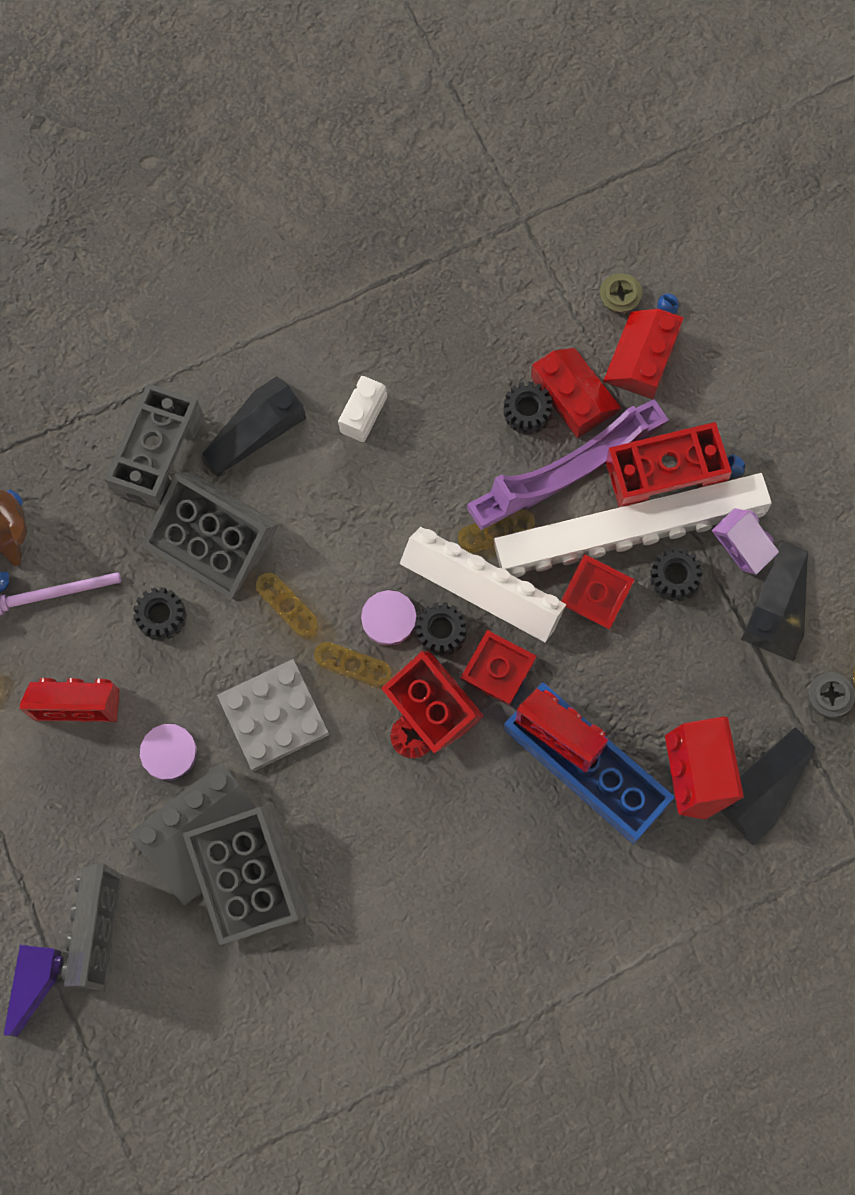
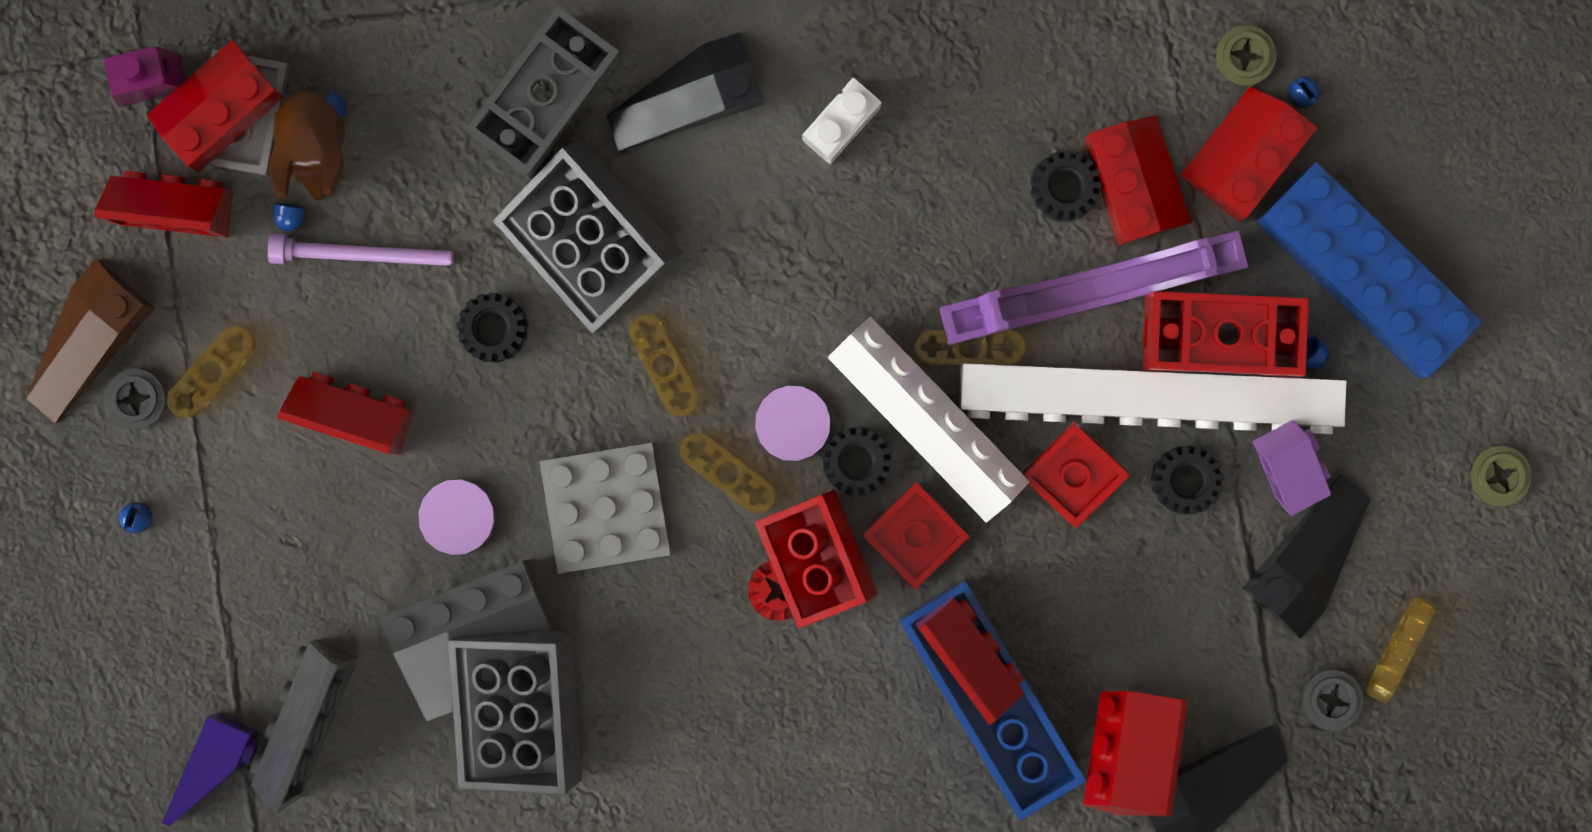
camera: 10 degrees right, 15 degrees up
(751, 401) = (1368, 271): none -> blue brick

